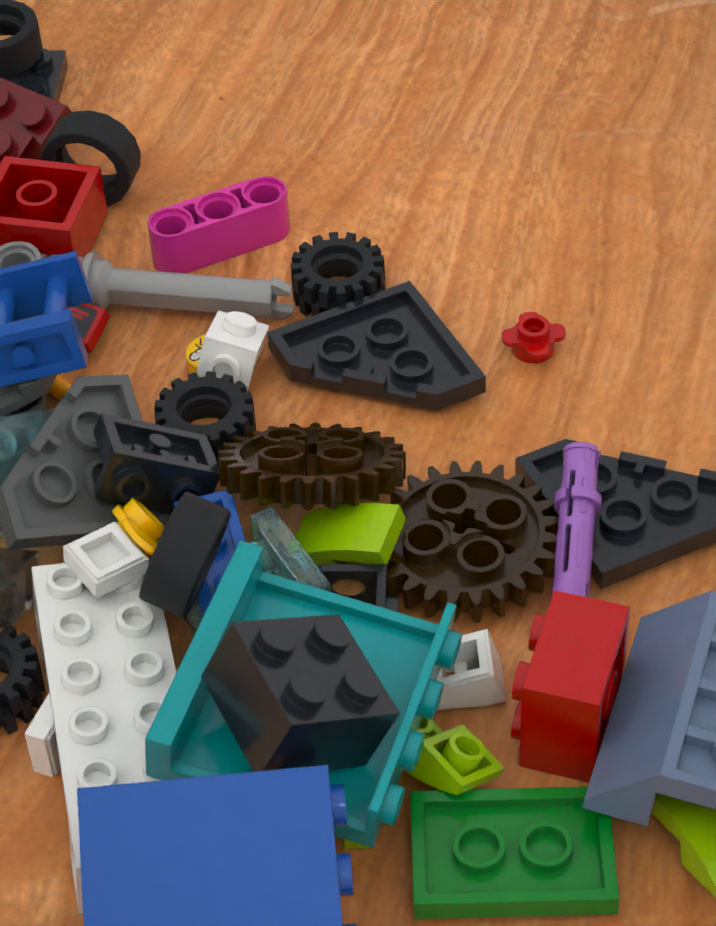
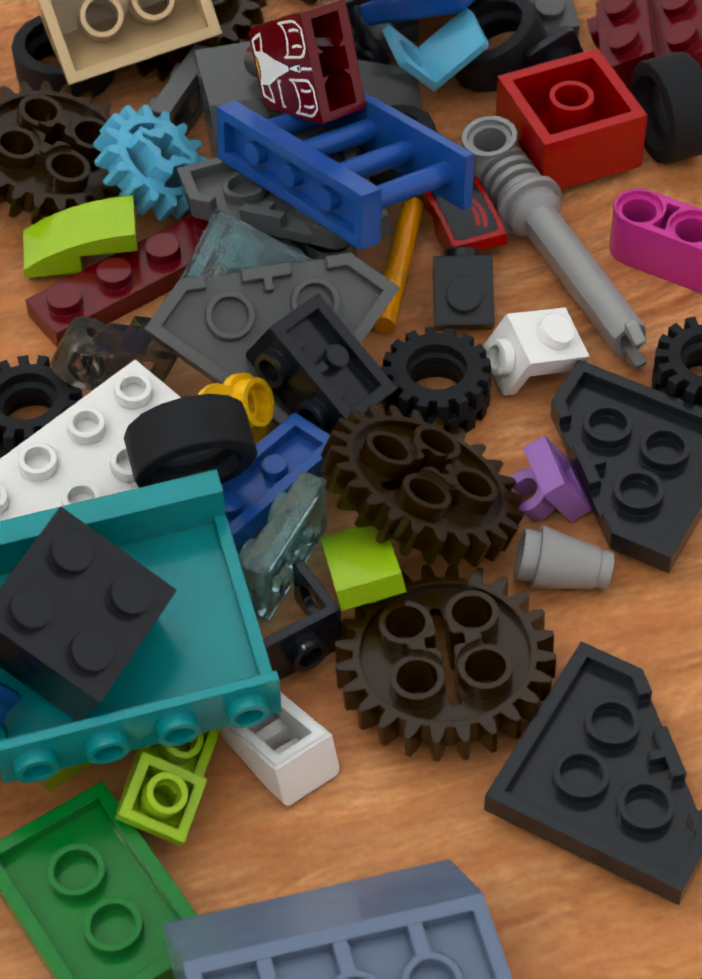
camera: 55 degrees right, 5 degrees up
(105, 559) = (162, 385): white tile -> none
(132, 354) = (463, 290): none -> black bracket
(362, 401) = (555, 483): none -> medium lavender tile
(432, 436) = (561, 561): none -> light grey cone
(569, 684) = (296, 828): red brick -> none
(577, 507) = (523, 731): medium lavender pin -> none

